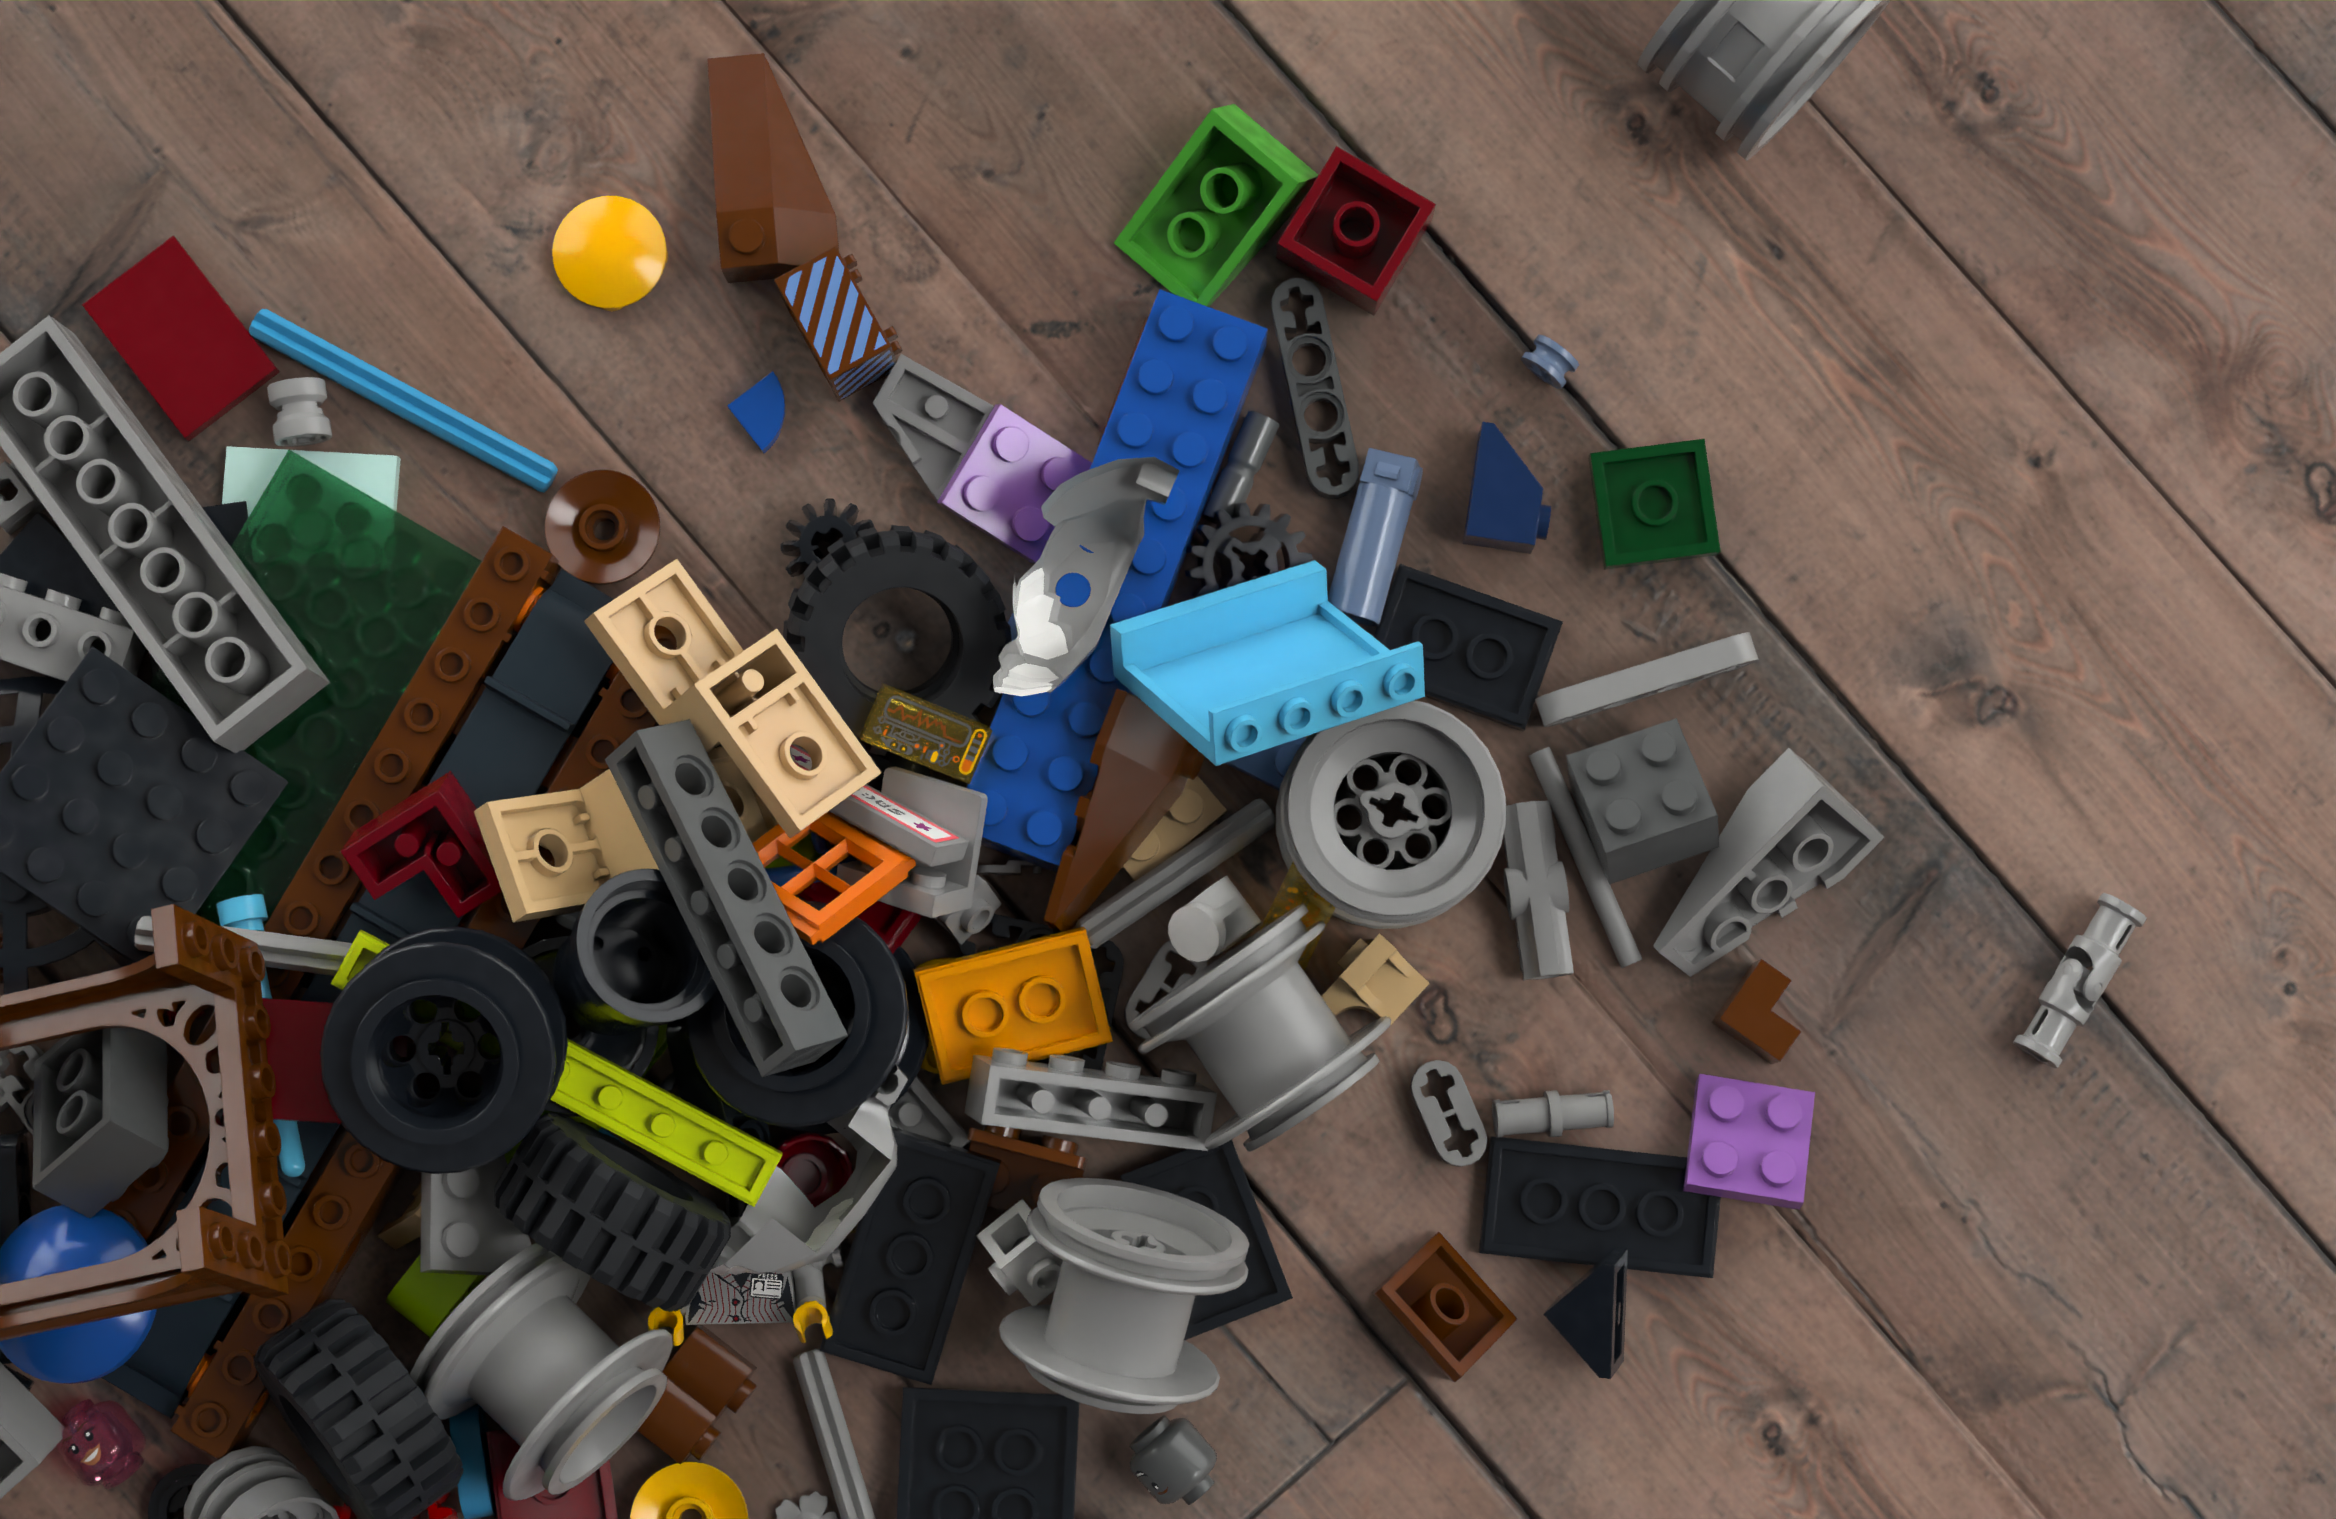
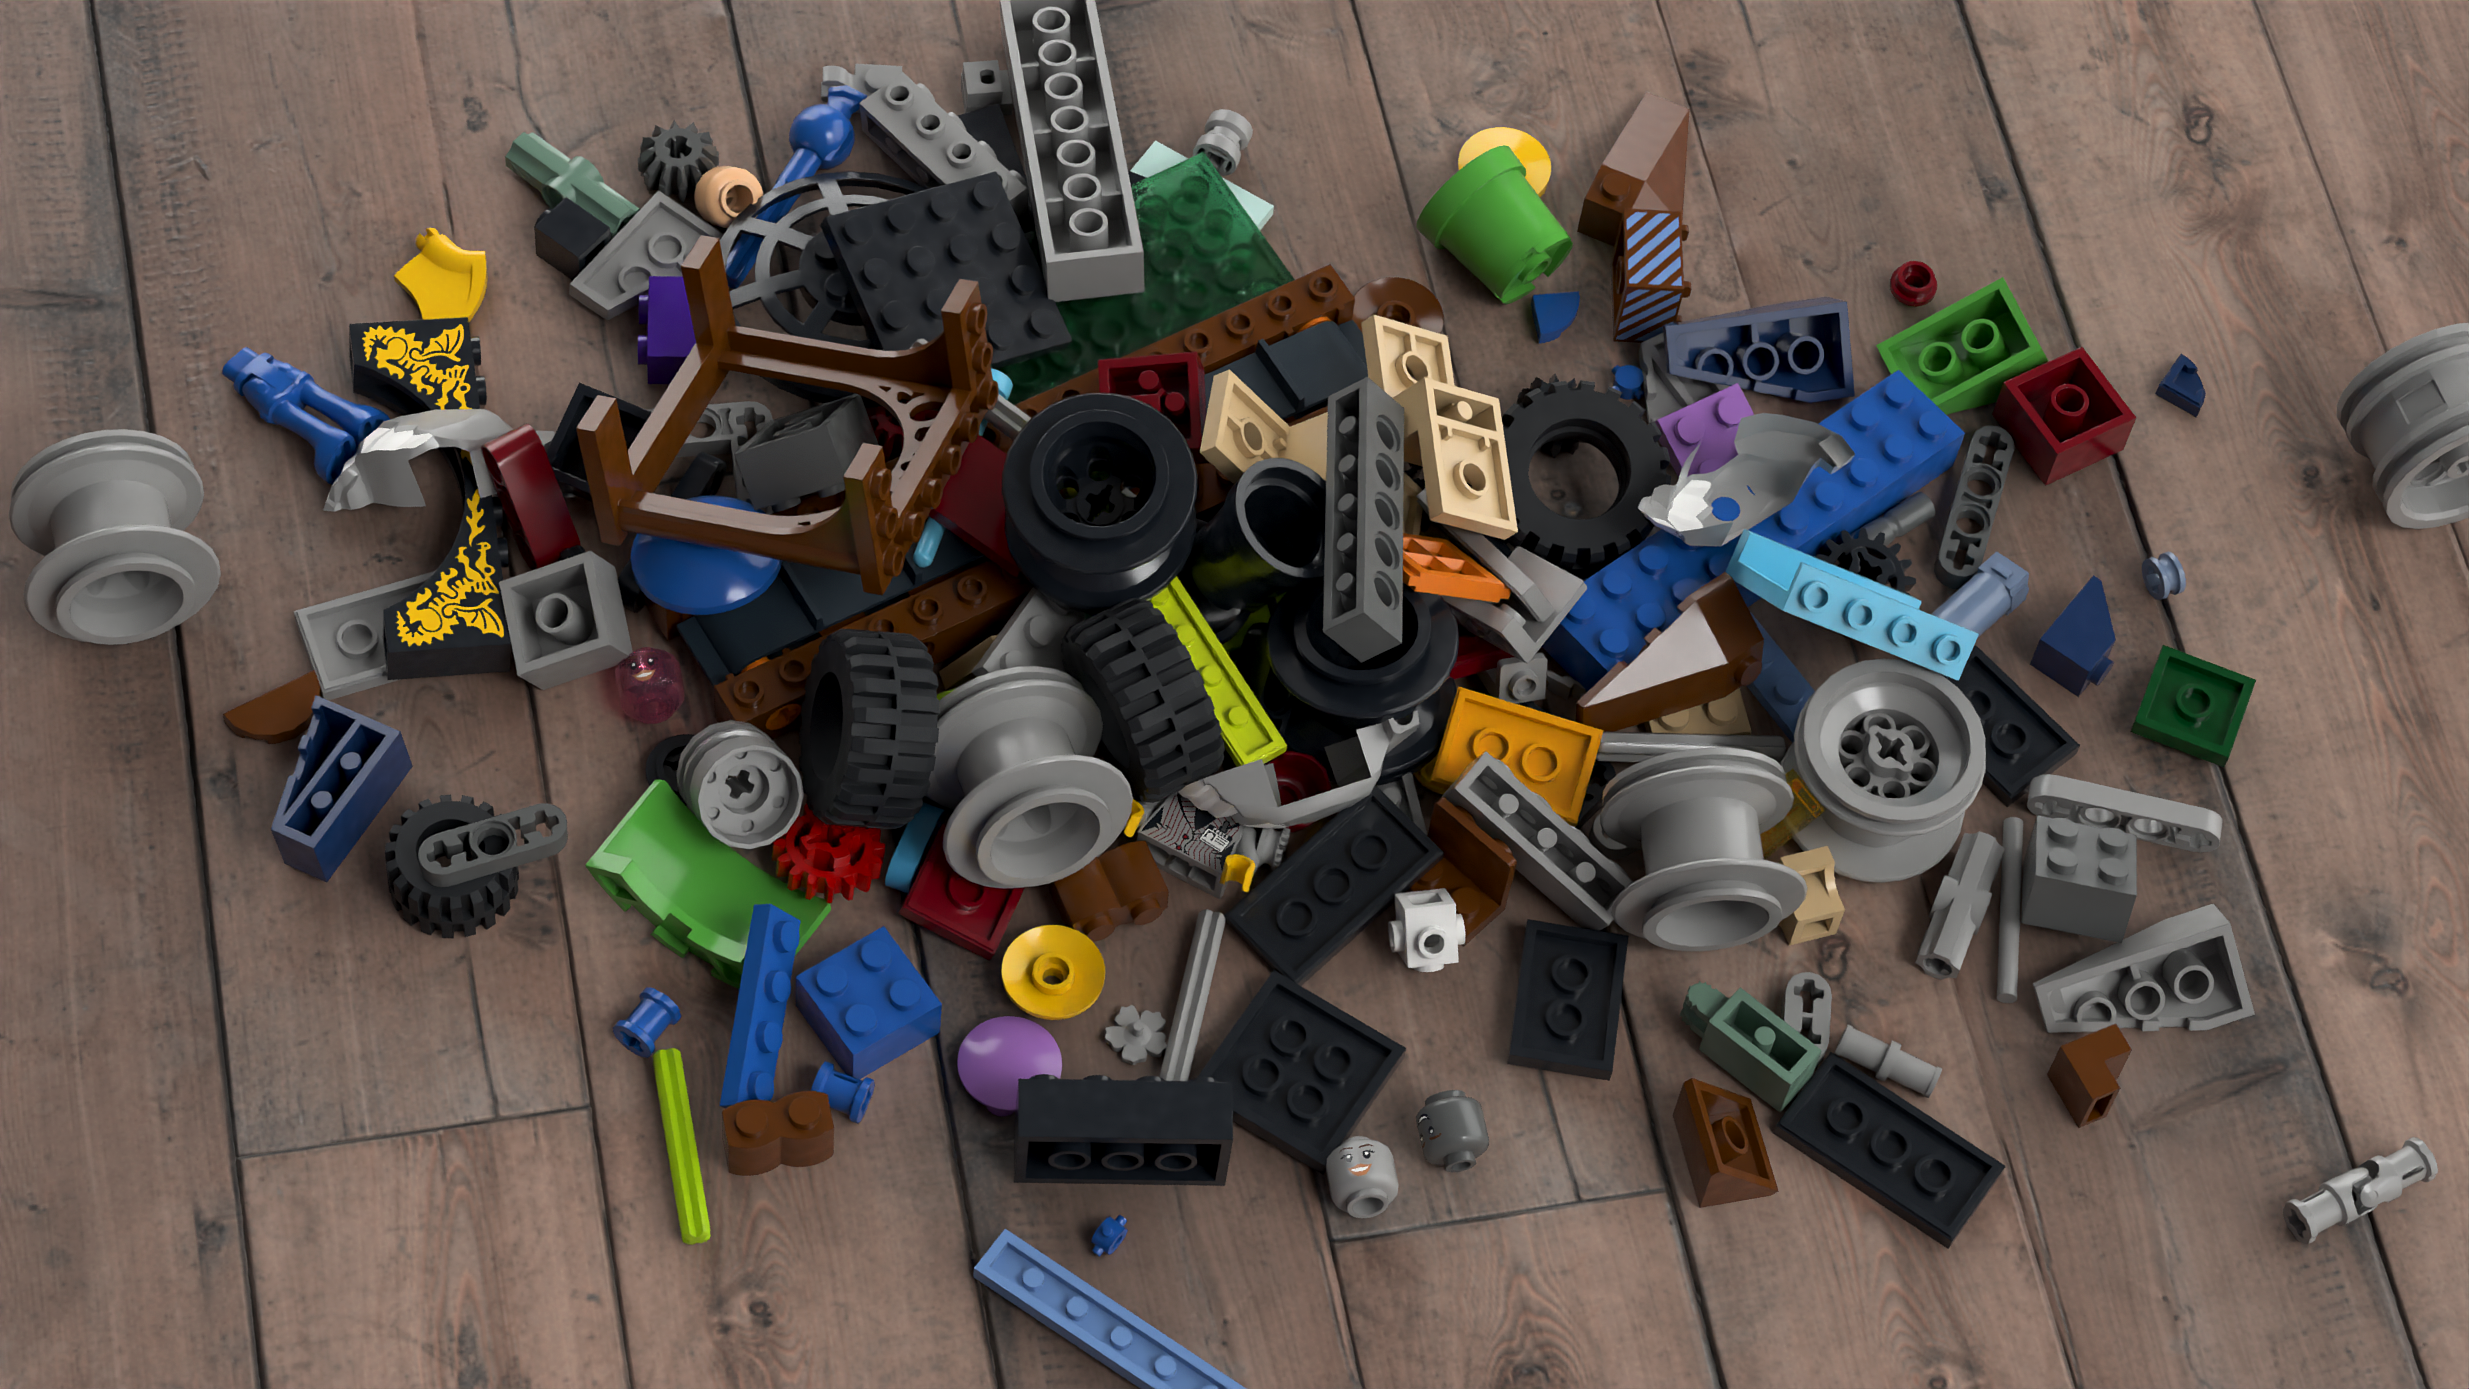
camera: 20 degrees right, 25 degrees down
(180, 338) = (1165, 63): dark red tile -> none
(403, 400) = (1301, 179): dark azure axle -> none
(649, 361) = (1496, 225): none -> bright green piece
(881, 450) = (1629, 381): none -> blue piece
(925, 733) = (1563, 531): clear yellow tile -> none
(1016, 324) = (1772, 349): none -> dark blue wedge
(1114, 126) = (1914, 274): none -> dark red plate
(1124, 1294) = (1494, 962): light grey wheel -> none
(1412, 1188) = (1751, 1043): none -> sand green hinge
(1456, 98) = (2183, 386): none -> dark blue tile
(1594, 1314) = (1848, 1203): black slope -> none
(1749, 1141) = (2034, 1160): medium lavender plate -> none

